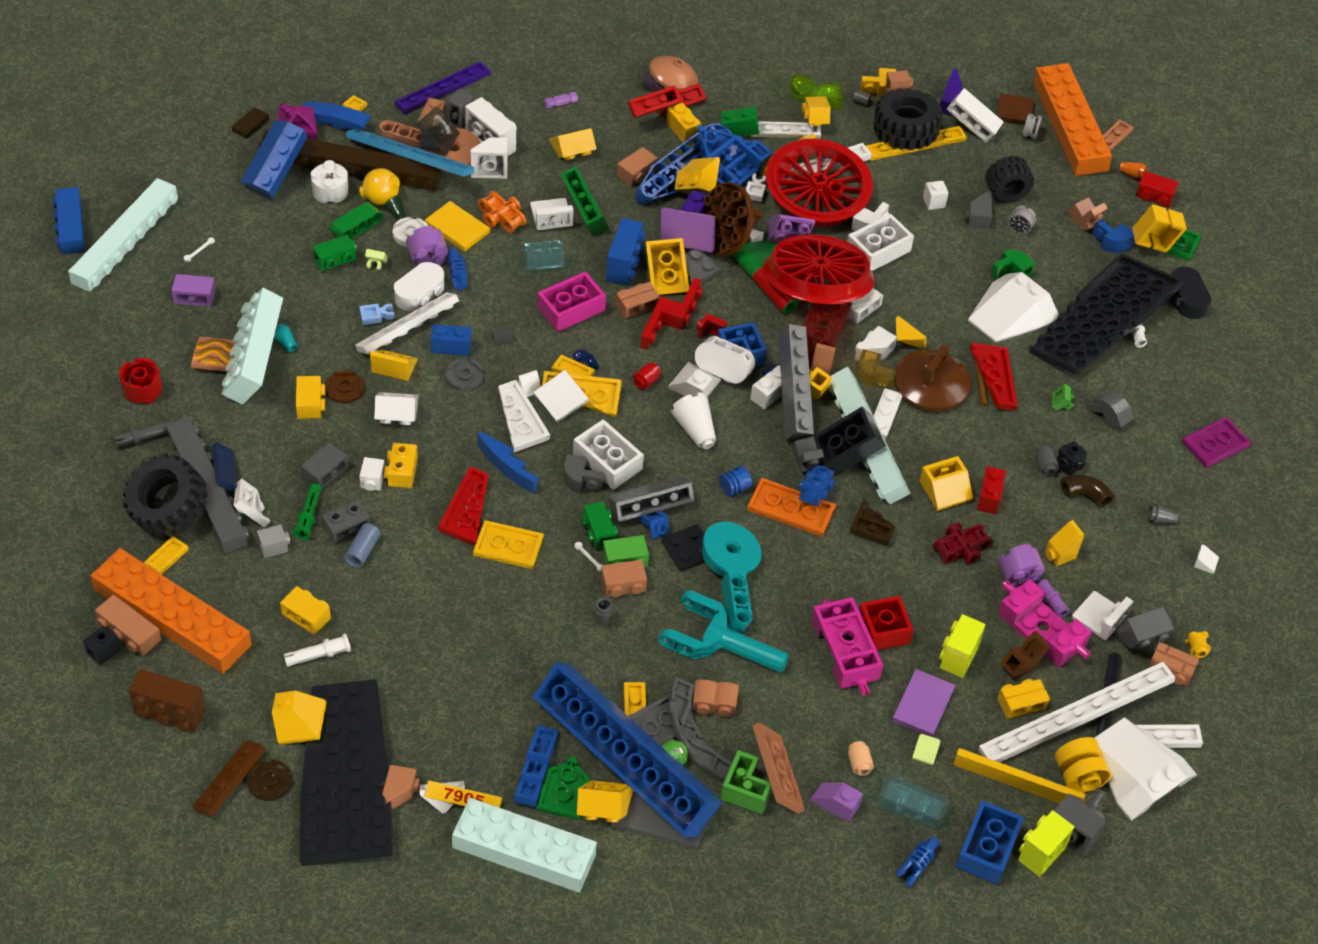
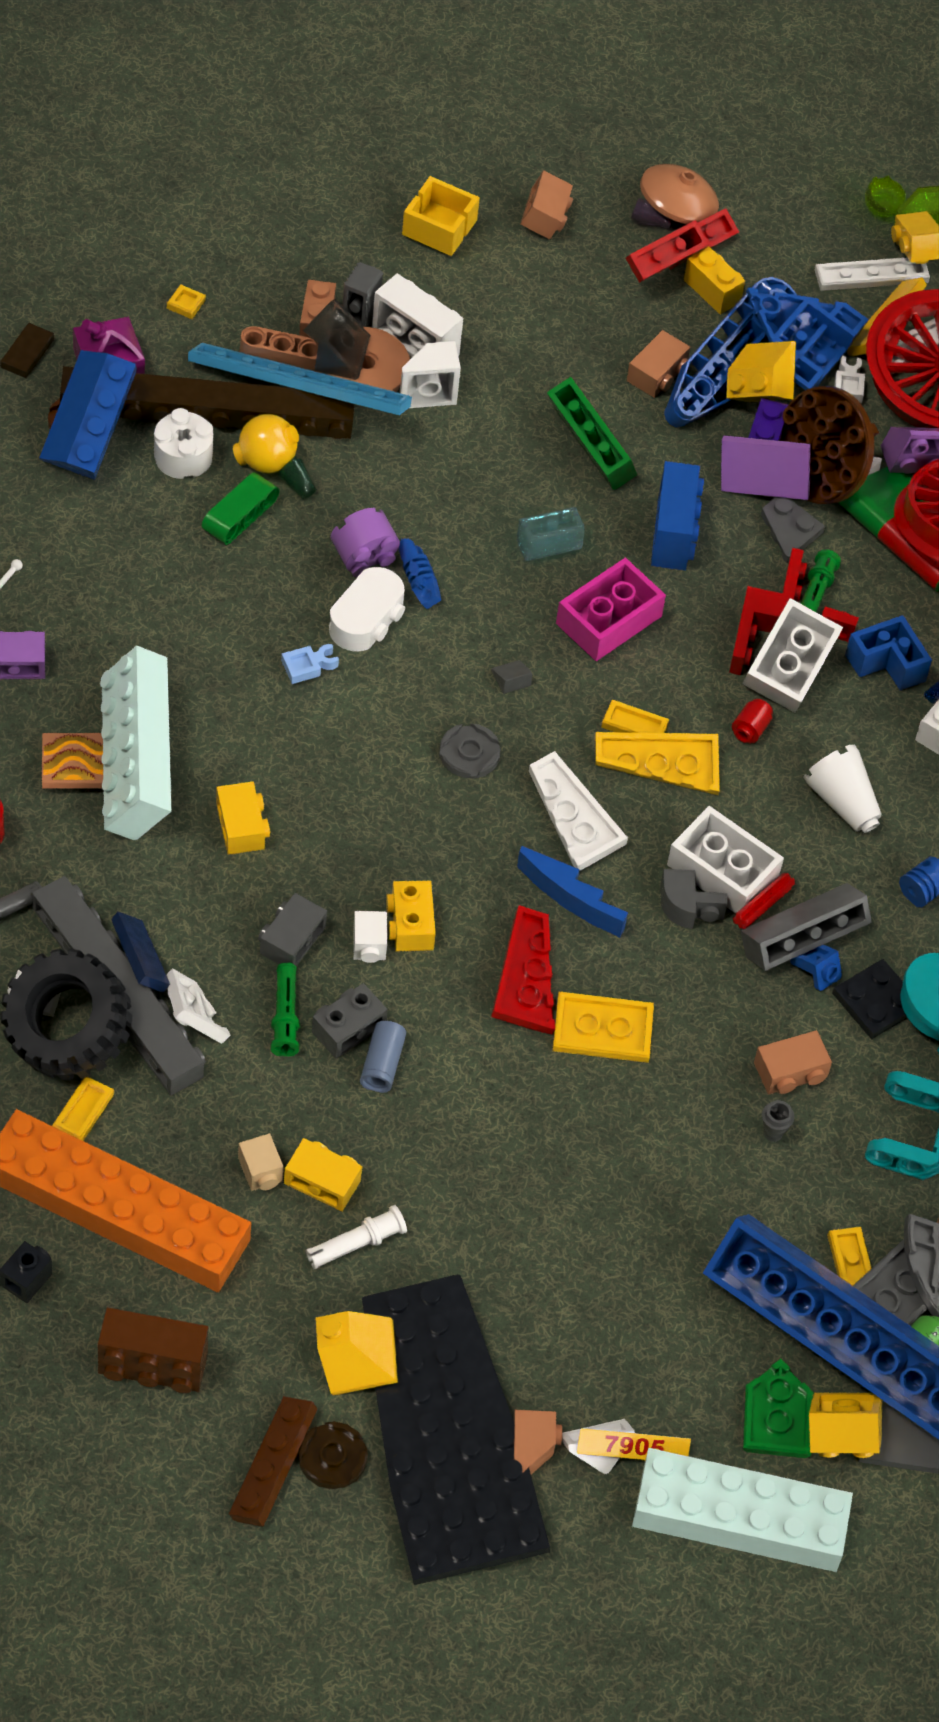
camera: 10 degrees left, 5 degrees up
(128, 624) = (61, 1233): nougat brick -> none
(268, 598) = (260, 1162): none -> tan brick
(273, 541) = (244, 1066): light grey brick -> none
(284, 336) = (180, 722): teal cone -> none
(334, 252) = (221, 566): green brick -> none
(338, 116) = (167, 324): blue slope -> none
(344, 387) = (291, 801): reddish brown tile -> none
(376, 257) = (287, 565): yellowish green tile -> none
(392, 364) = (356, 746): yellow slope -> none
(396, 407) = (380, 819): white slope -> none
(404, 324) = (361, 674): white plate -> none
(405, 228) = (334, 509): white tile -> none
(442, 87) = (318, 255): dark purple tile -> none
(451, 340) = (438, 695): blue brick -> none
(458, 226) = (402, 496): yellow tile -> none
(499, 211) = (464, 465): orange axle -> none
(521, 71) = (440, 215): none -> yellow piece
(529, 382) = (577, 754): white slope -> none
(536, 765) = (729, 1381): blue slope -> none
(552, 213) = (543, 459): white bracket -> none
(561, 100) = (511, 258): medium lavender axle -> none
(561, 396) = (630, 771): white tile -> none
(573, 143) = (550, 333): yellow slope -> none
(579, 546) = (710, 1016): white hinge -> none
(588, 357) = (655, 699): clear blue arm -> none
(589, 71) = (547, 205): none -> nougat brick
(598, 524) = (737, 980): green brick -> none
(625, 550) = (785, 1018): bright green brick -> none
(627, 480) = (763, 901): none -> red axle
(636, 300) = (709, 593): nougat brick -> none
(667, 266) = (743, 533): yellow slope -> none
(678, 338) = (792, 655): none -> white brick
(694, 380) = (825, 722): white slope -> none
(709, 298) = (815, 581): none -> green pin
(724, 359) = (869, 682): white brick -> none
(741, 121) = (804, 267): green slope -> none

